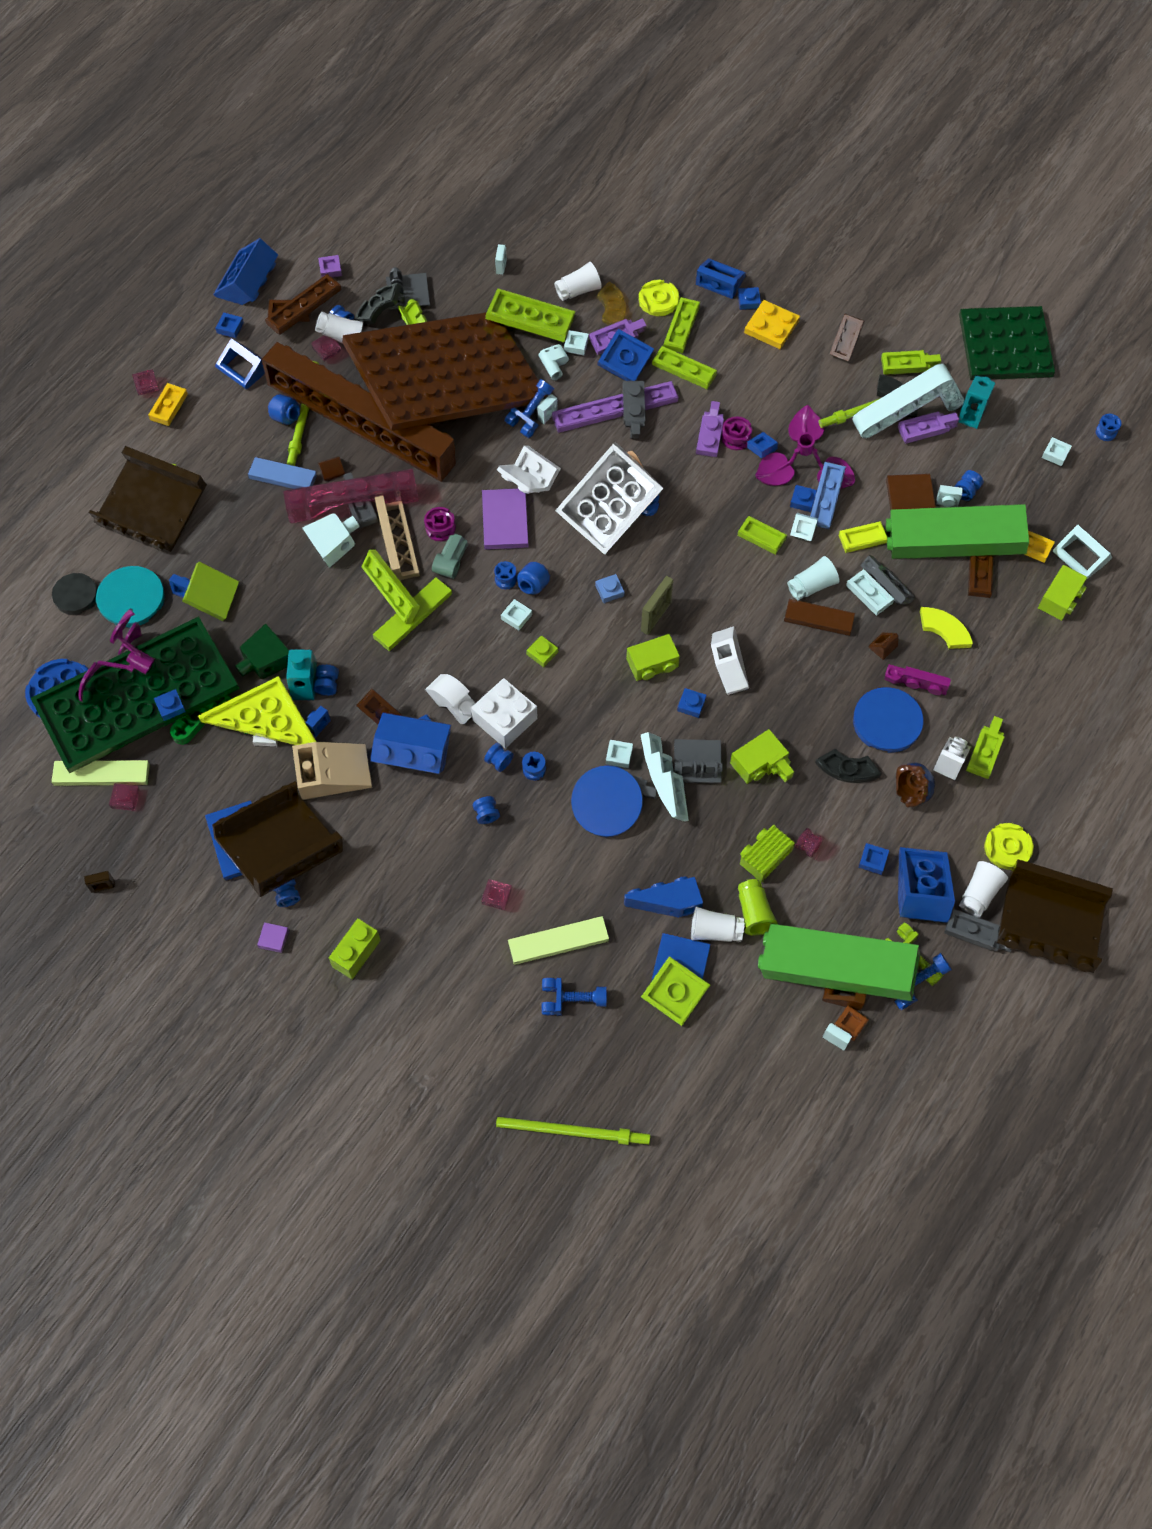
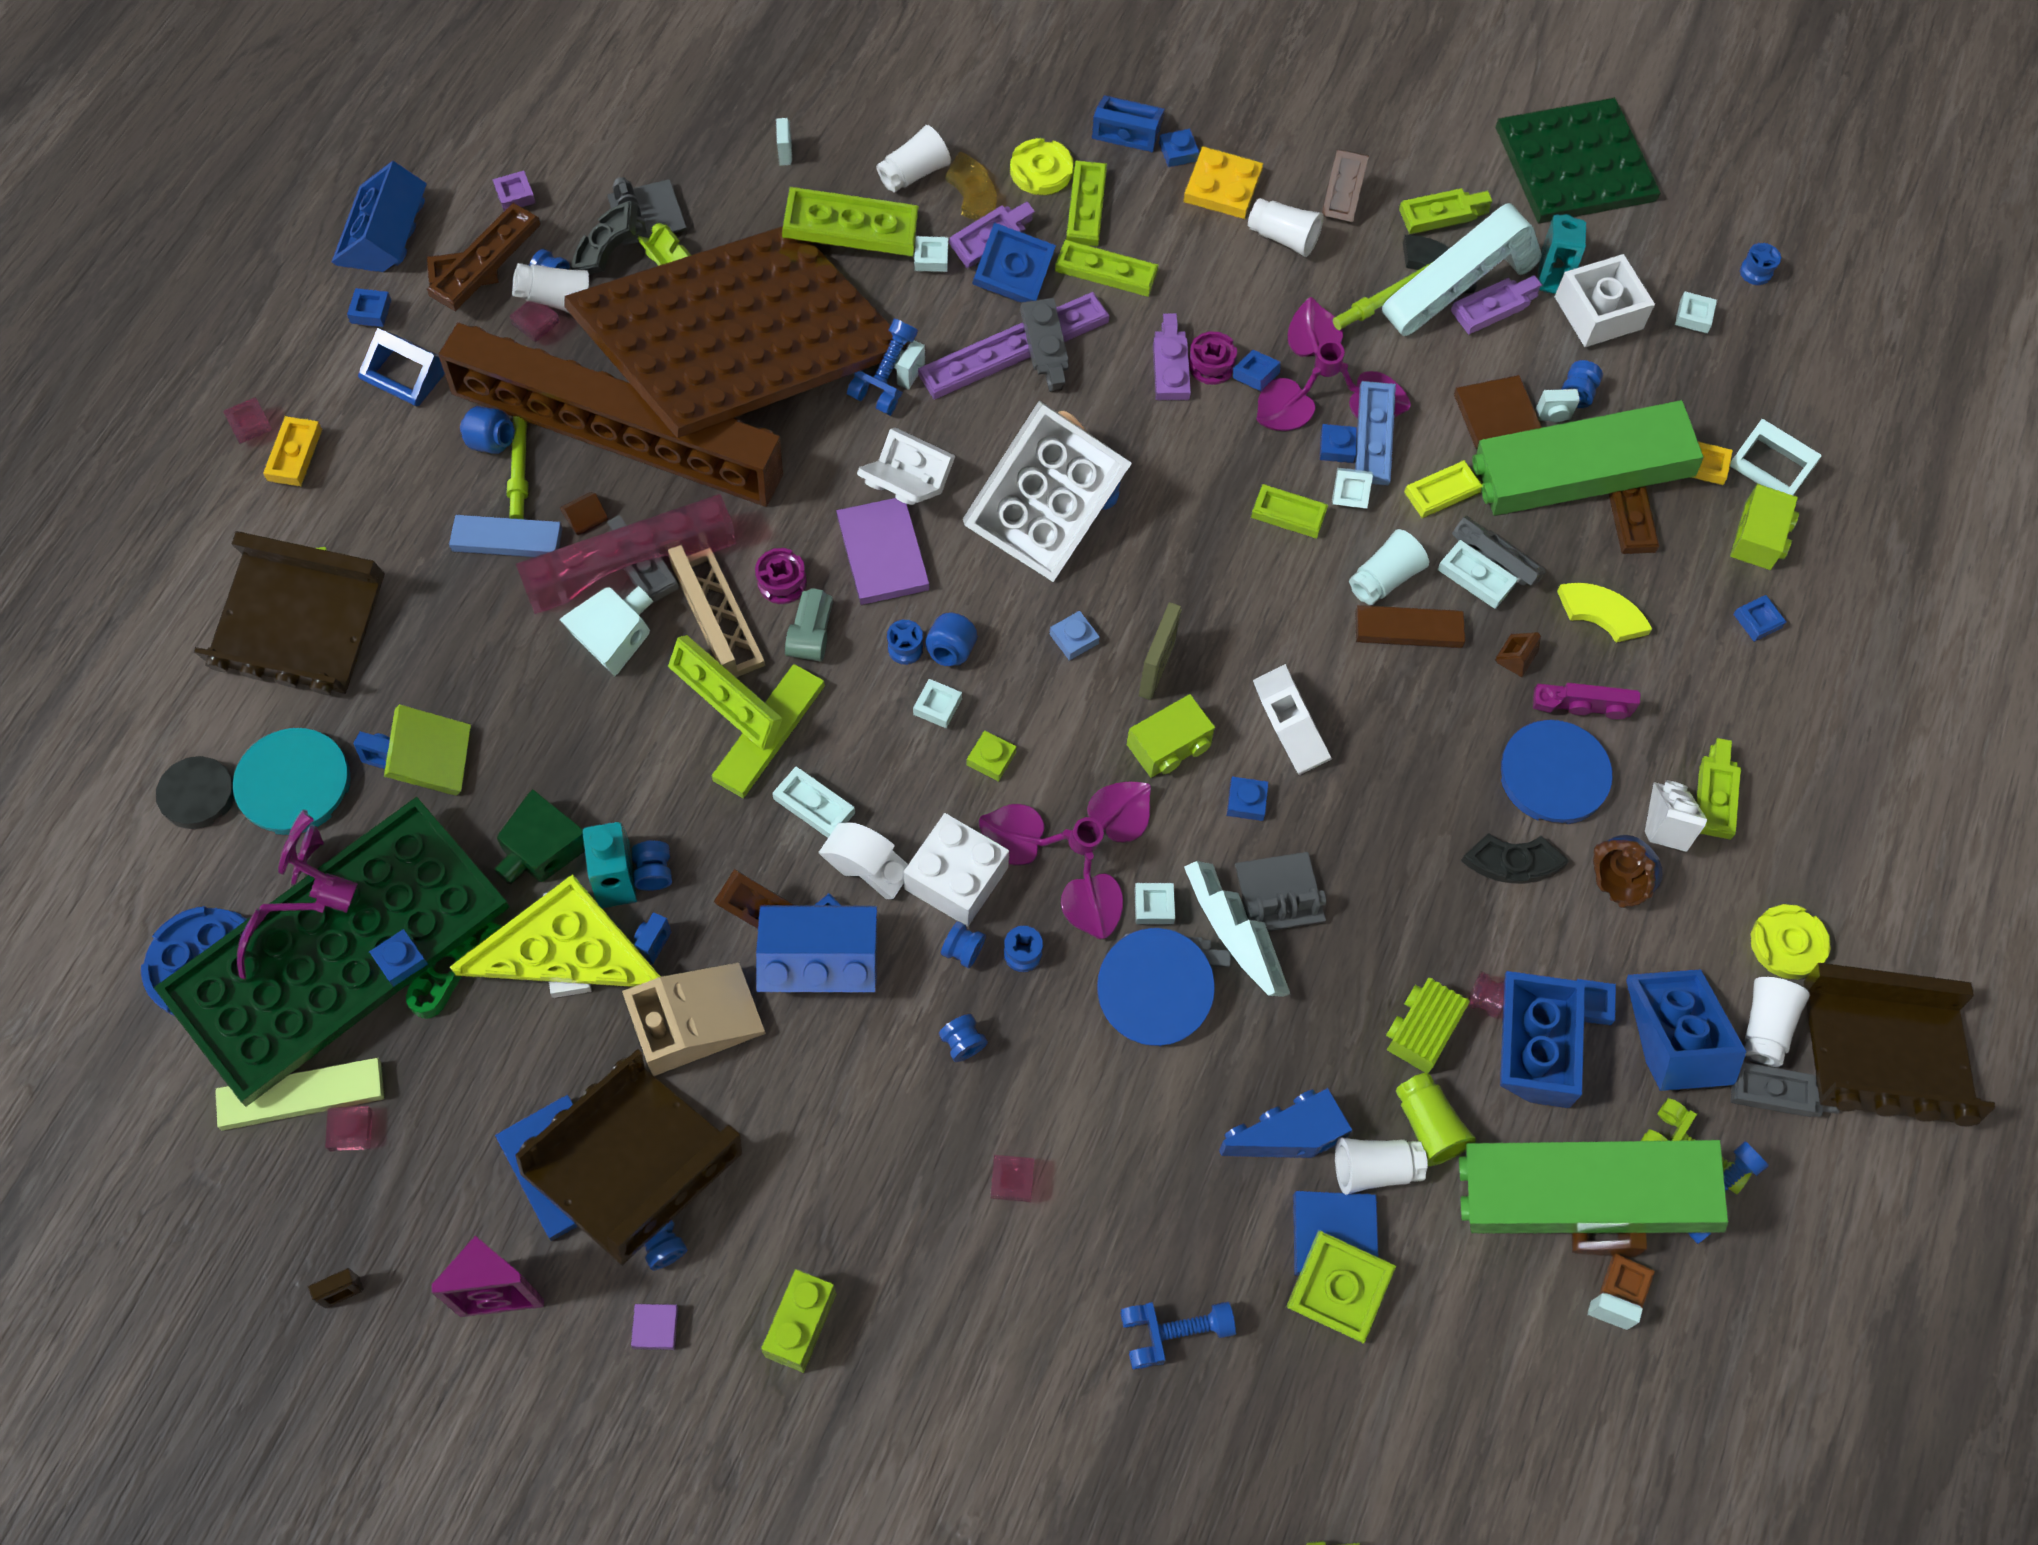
camera: 15 degrees left, 0 degrees up
(180, 892) = (483, 1284): none -> magenta slope
(428, 659) = (812, 802): none -> light aqua plate
(554, 359) = (900, 287): light aqua piece -> none
(558, 940) = (1129, 1236): yellowish green tile -> none
(582, 747) = (1087, 903): none -> magenta plant
(762, 756) = (1381, 868): lime hinge -> none
(804, 357) = (1286, 225): none -> white plant
(832, 872) = (1543, 1038): none -> blue slope
(996, 435) = (1604, 300): none -> white brick
(1045, 648) = (1759, 618): none -> blue tile

